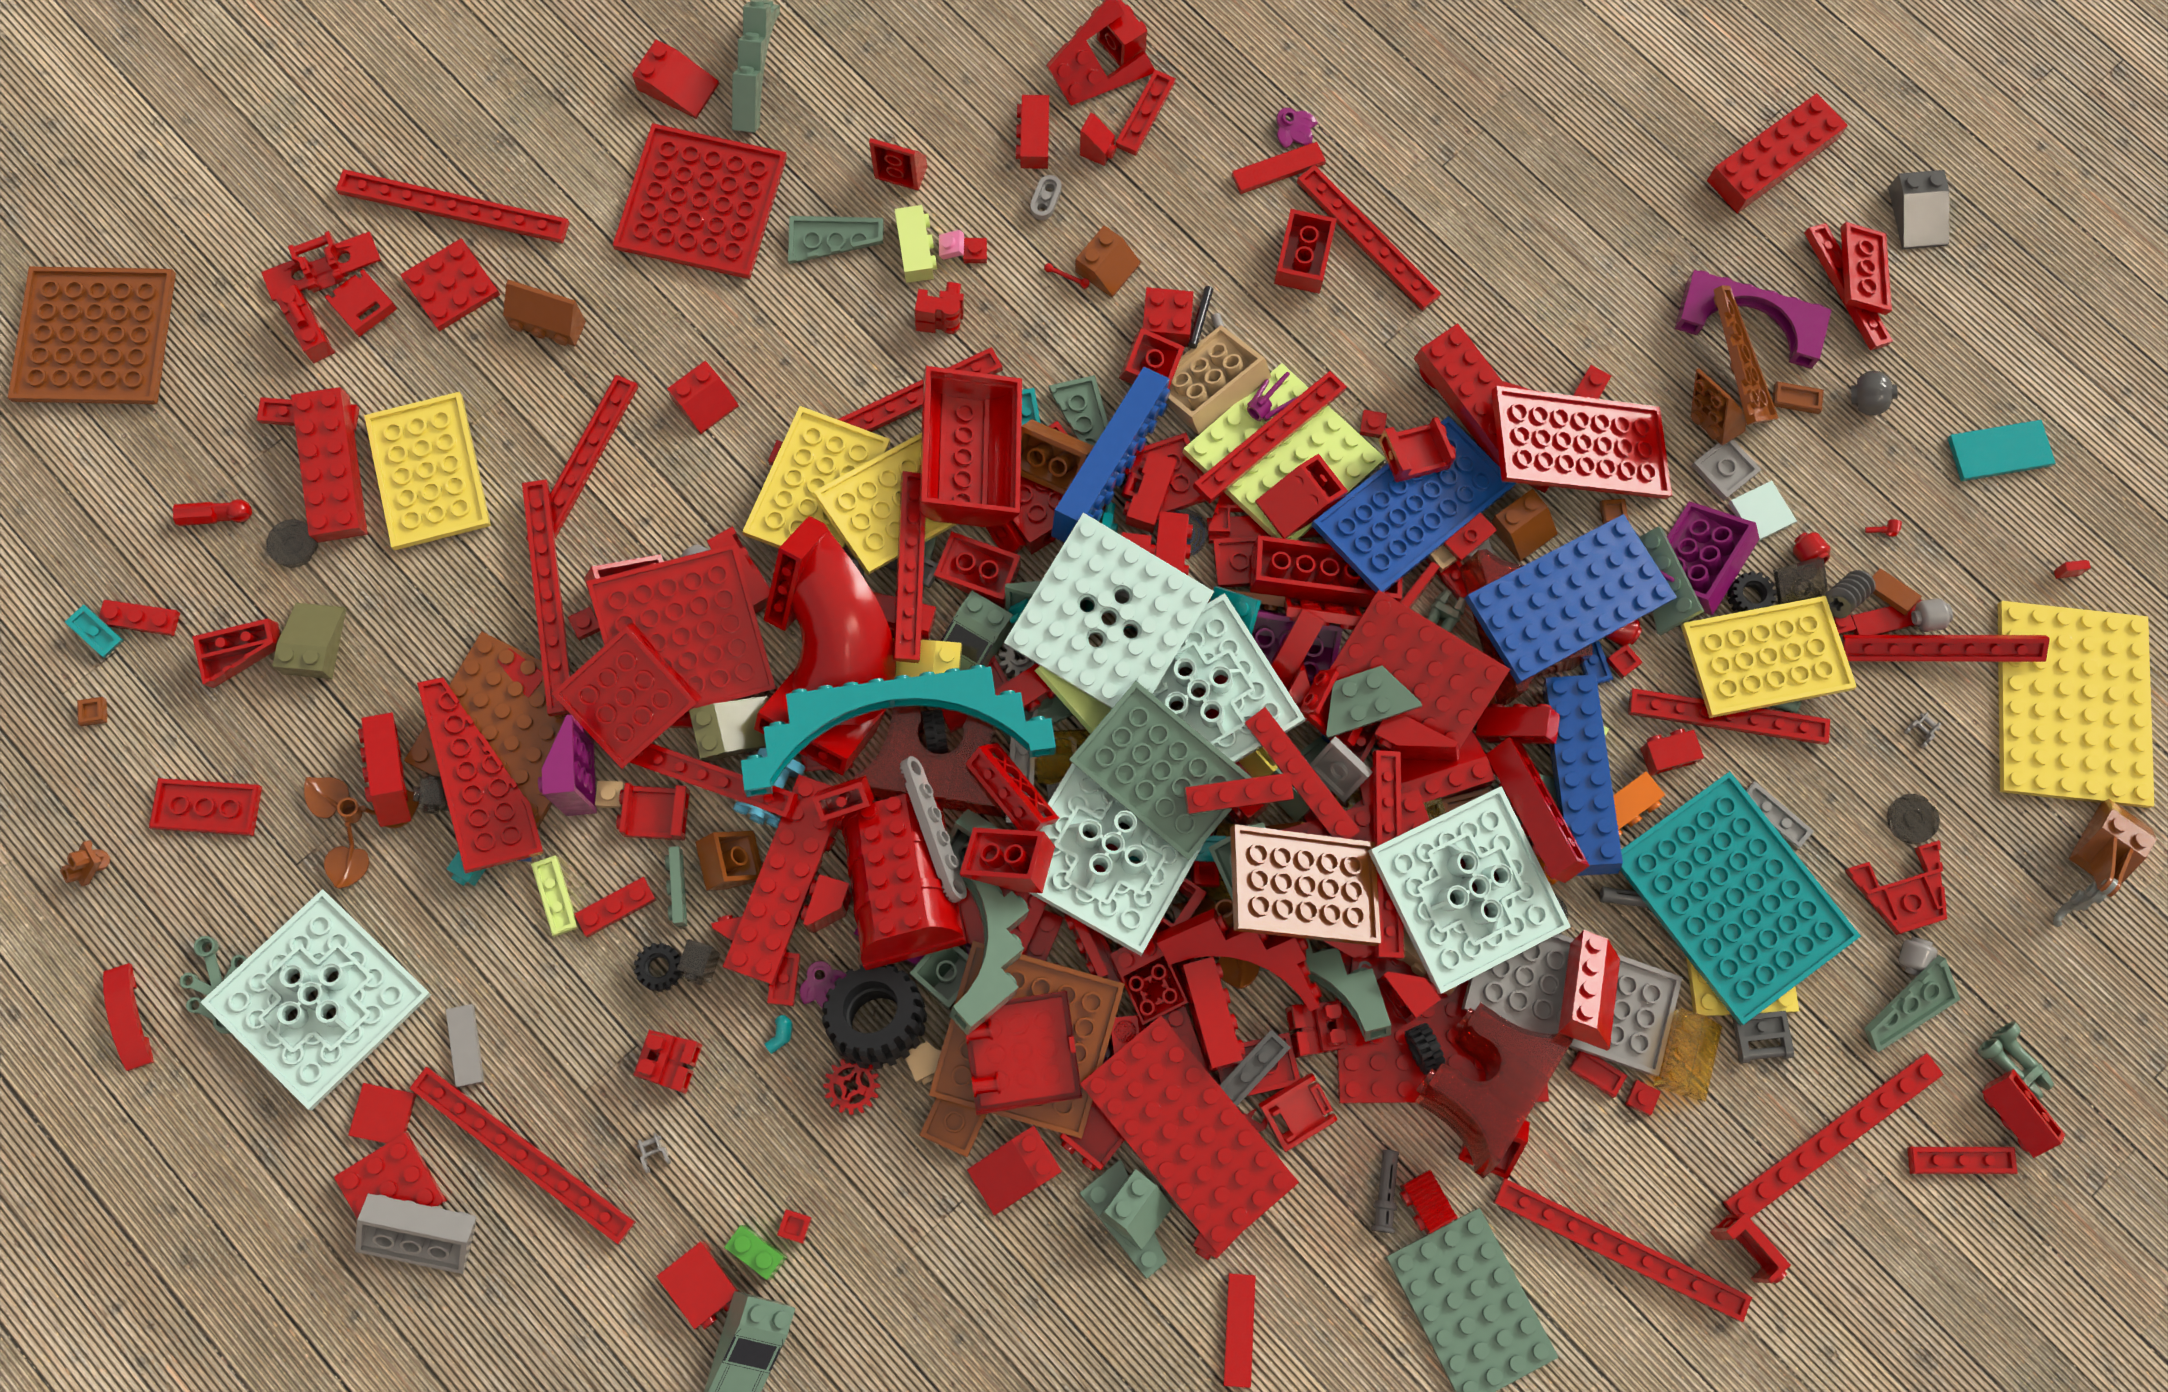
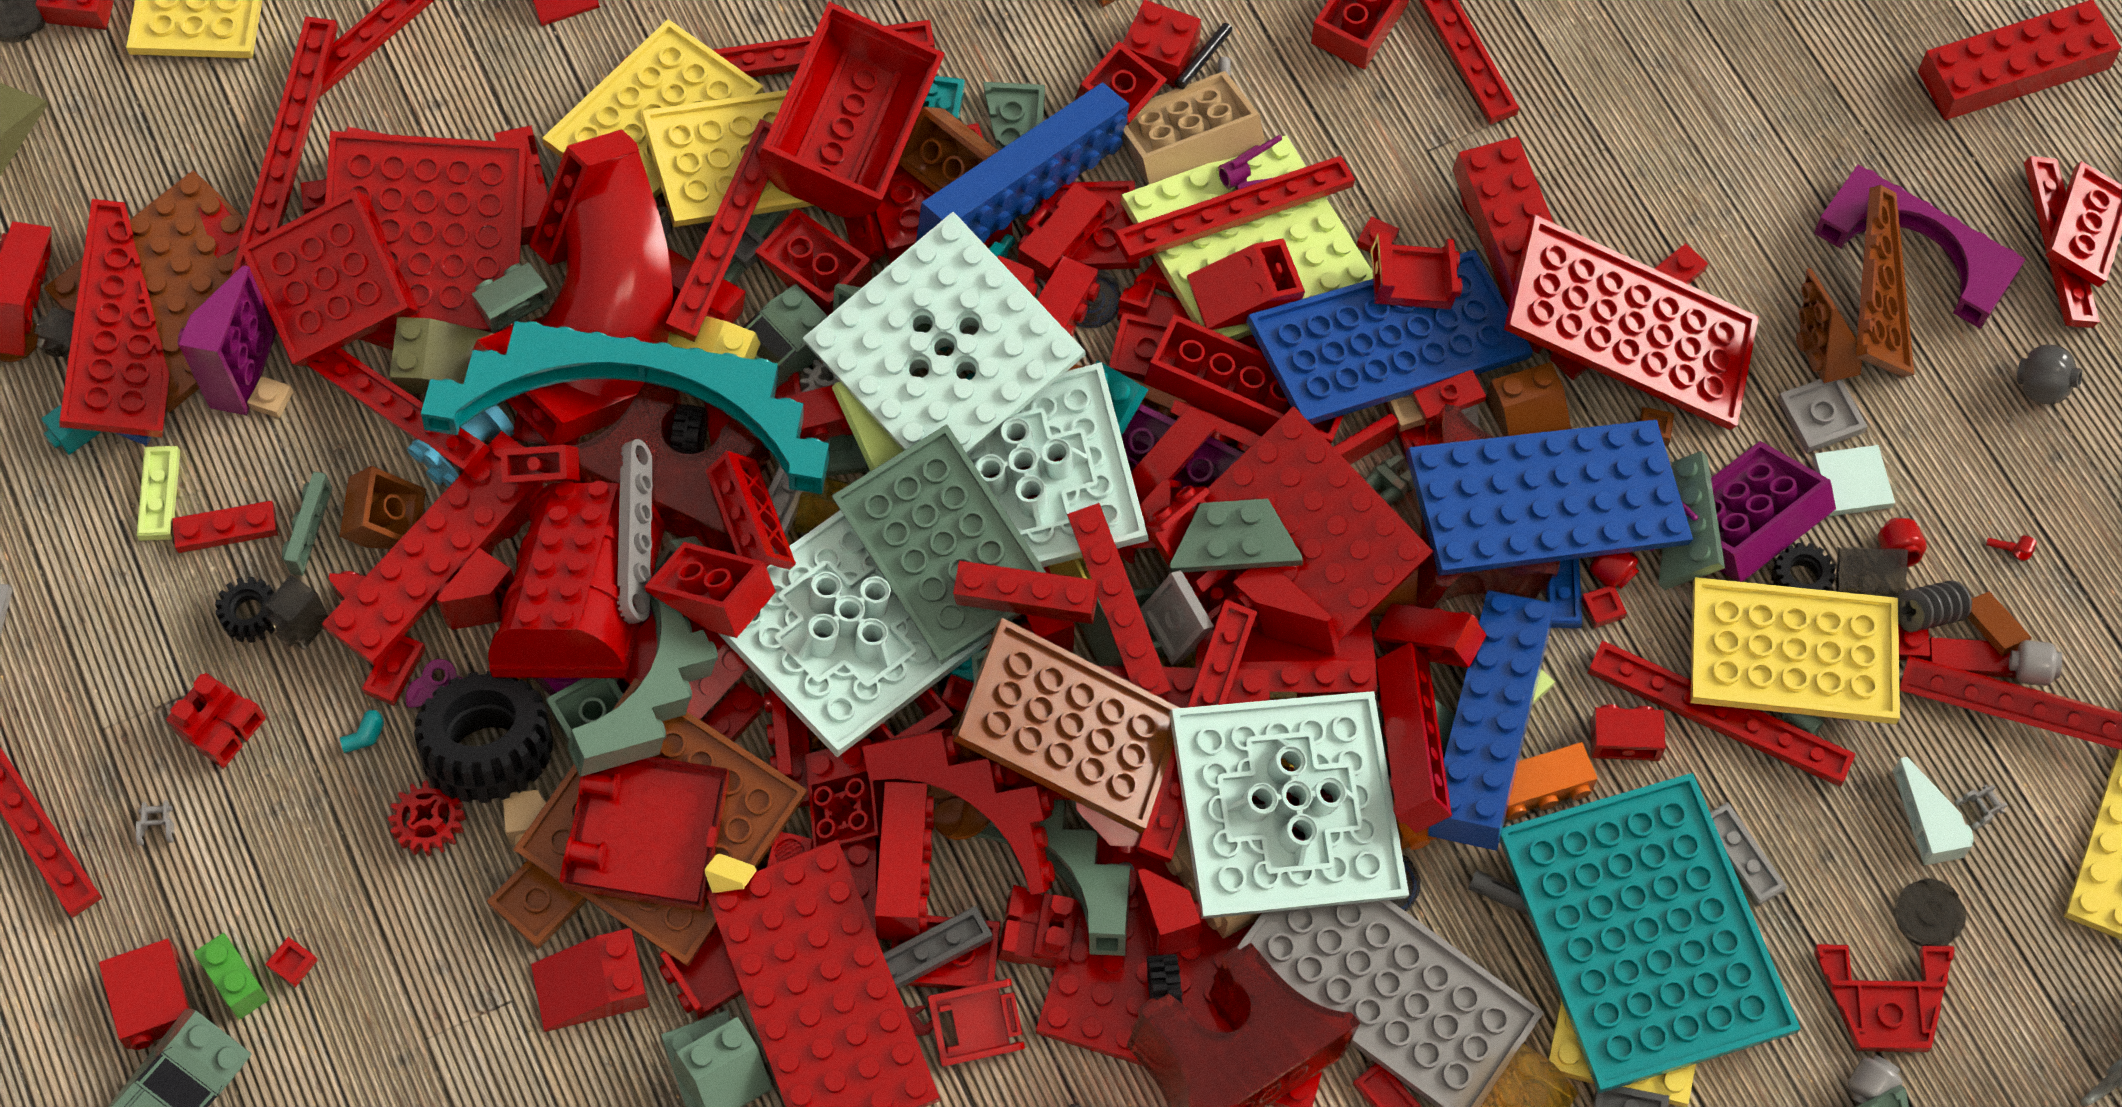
camera: 20 degrees right, 10 degrees down
(653, 812) = (313, 431): red panel -> none
(766, 666) = (510, 296): none -> sand green slope
(1093, 1066) = (728, 873): none -> light yellow slope
(1590, 990) = (1406, 977): red slope -> none
(1797, 397) = (1949, 357): dark orange tile -> none
(1896, 751) = (1933, 818): none -> light aqua slope

